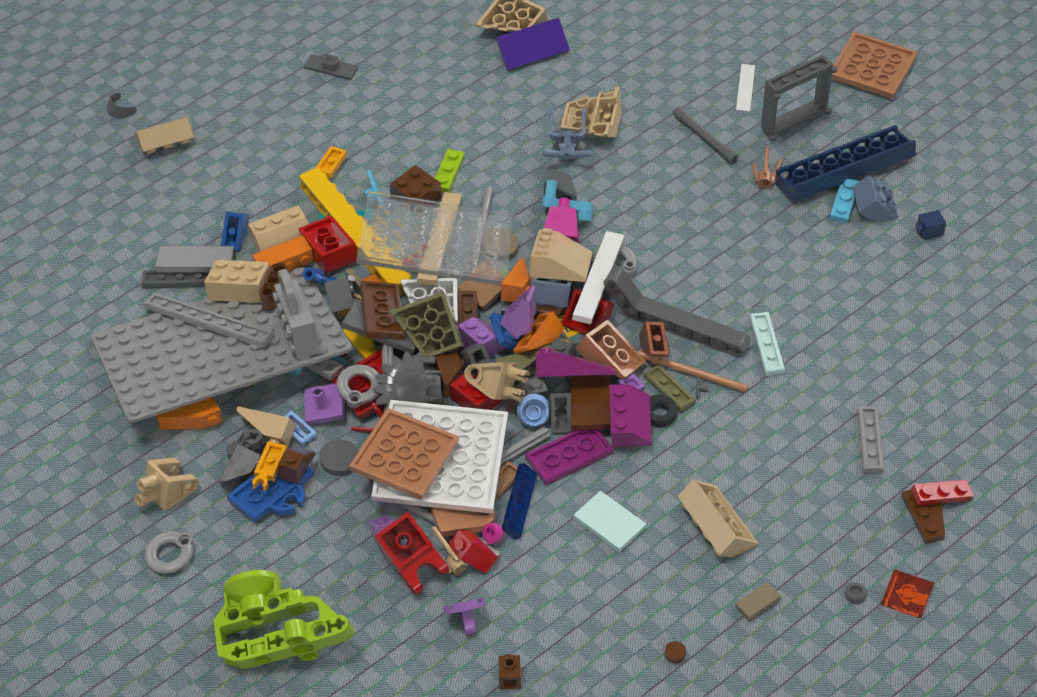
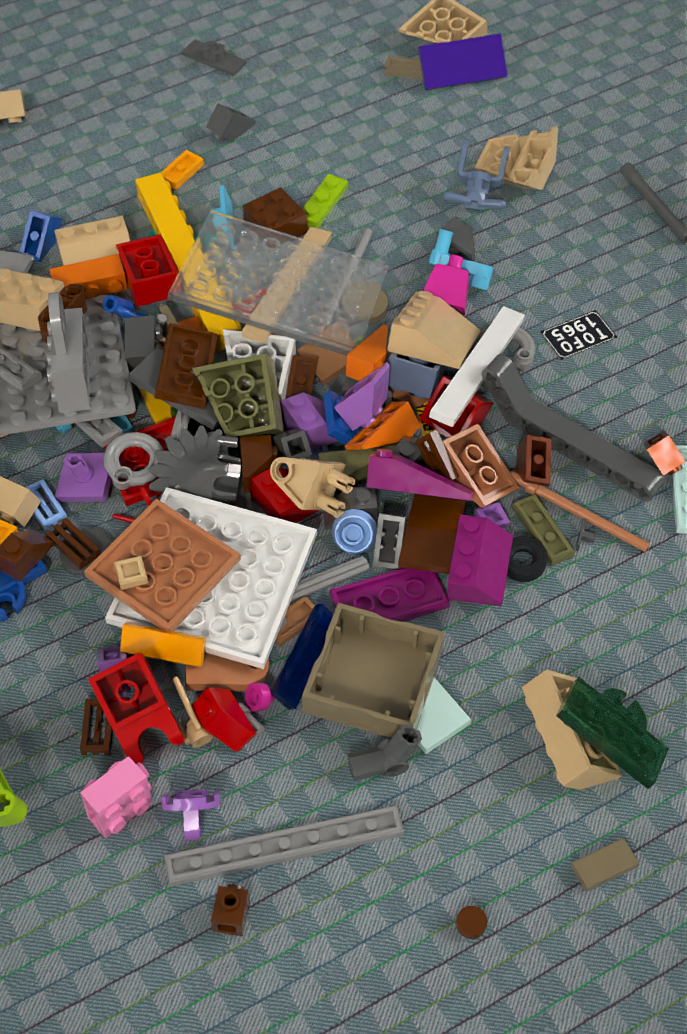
camera: 10 degrees right, 5 degrees up
(331, 449) = (60, 530): none -> reddish brown tile
(359, 119) = (229, 123): none -> dark grey slope
(384, 461) = (131, 572): none -> tan tile
(384, 586) = (96, 748): none -> reddish brown tile
(412, 612) = (117, 796): none -> bright pink brick
(418, 507) = (163, 645): none -> light orange tile
(486, 54) = (403, 67): none -> dark tan tile
(534, 627) = (283, 845): none -> light grey tile
(572, 502) = (373, 672): none -> dark tan tile
(582, 346) = (436, 455): none -> reddish brown tile
(594, 557) = (388, 757): none -> dark grey piece
(666, 244) = (578, 334): none -> black sticker
(747, 320) = (664, 453): none -> slope
(747, 511) = (614, 729): none -> clear green plate

